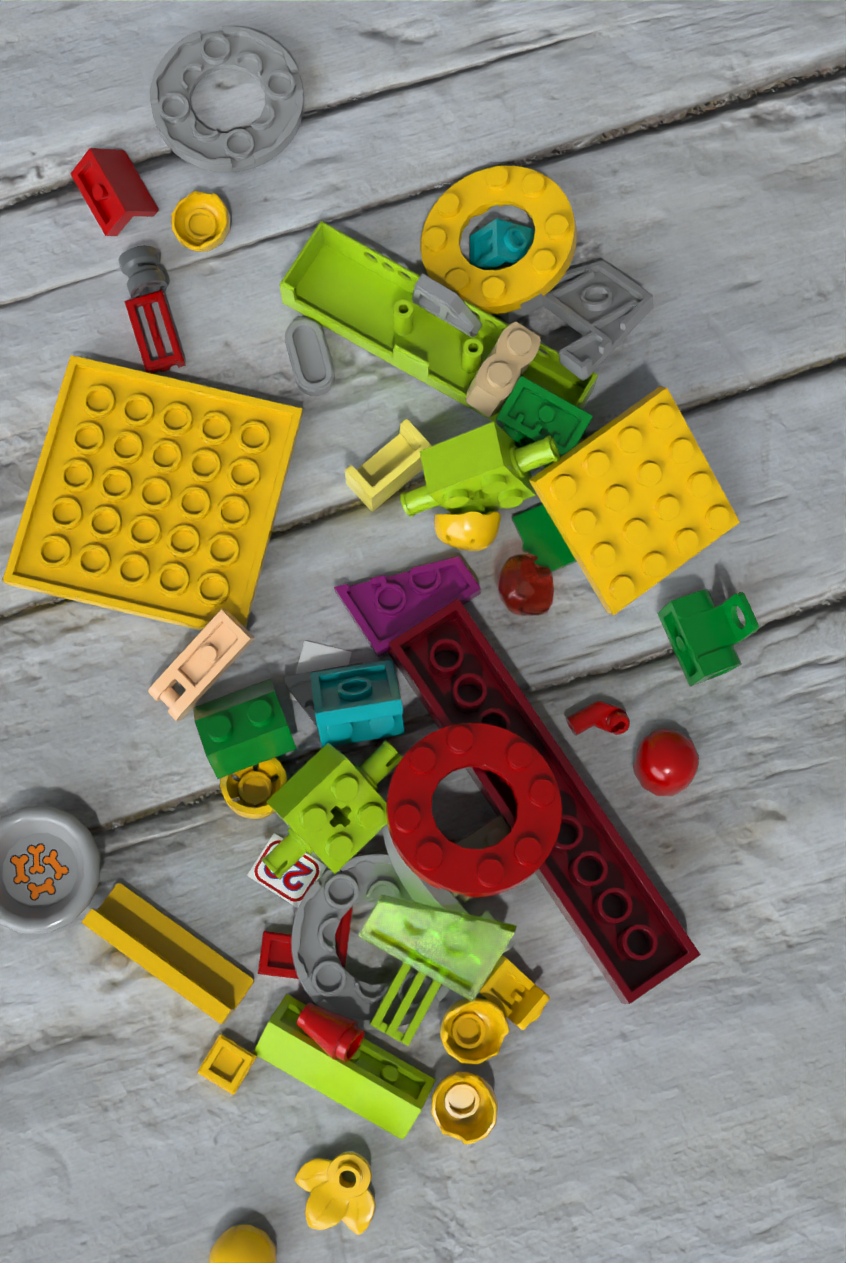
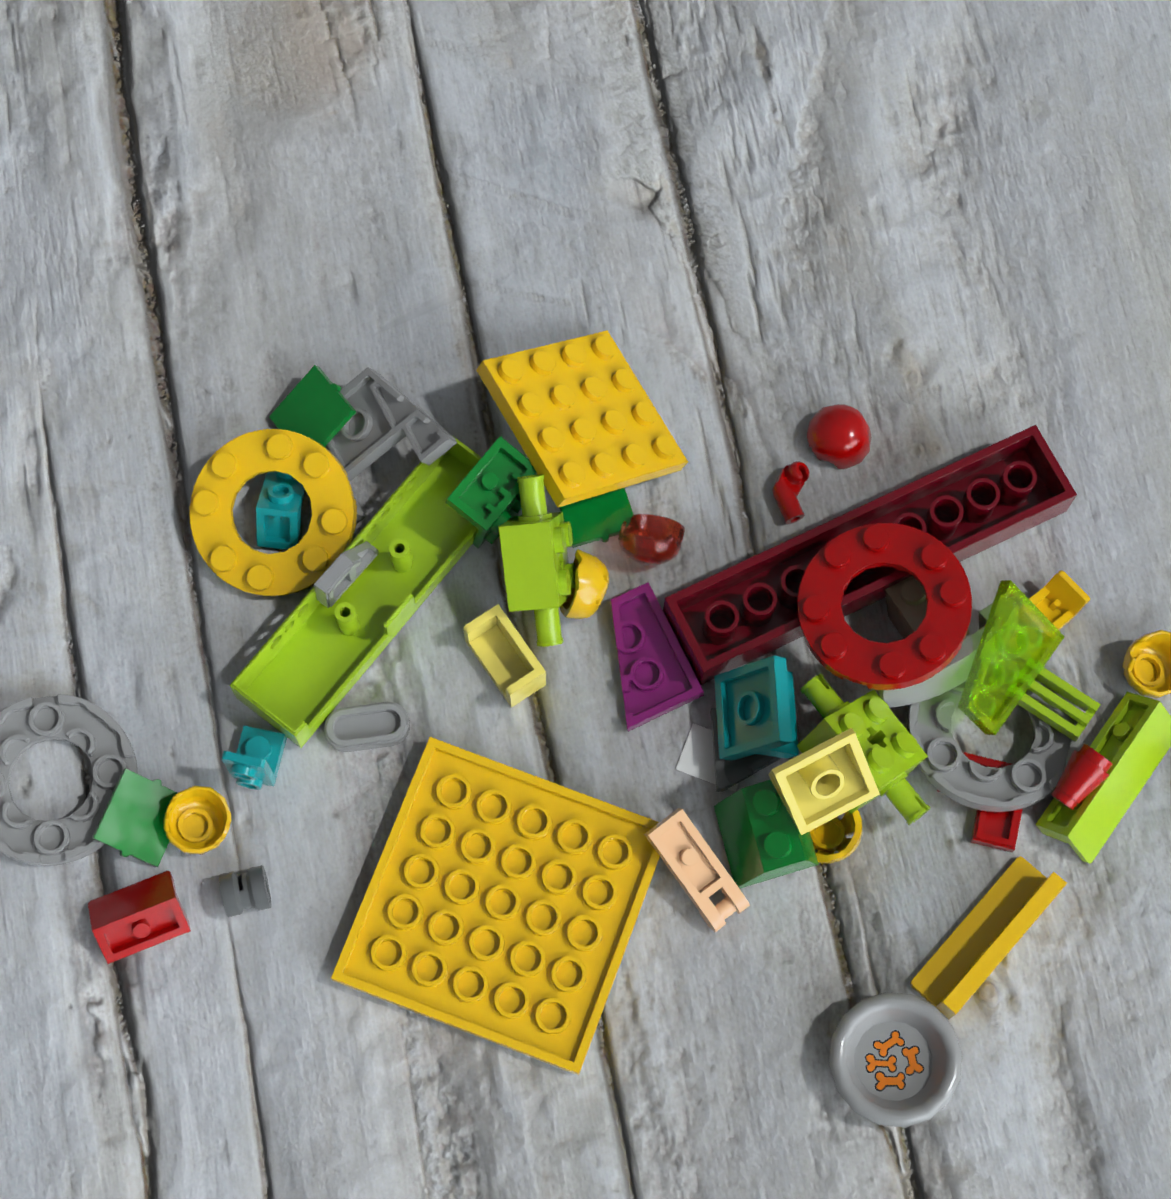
camera: 80 degrees left, 5 degrees down
(163, 362) = (313, 905): red tile -> none
(198, 168) = (136, 818): none -> piece
(227, 1064) = (1099, 890): yellow tile -> none
(261, 265) = (256, 758): none -> teal bracket
(278, 759) = (824, 781): none -> light yellow slope
(294, 882) = (912, 836): sticker -> none
(473, 1030) = (1087, 647): yellow hair -> none
(502, 369) = (425, 521): tan brick -> none
(606, 260) = (314, 408): none -> green piece
(706, 634) = (719, 377): green piece -> none

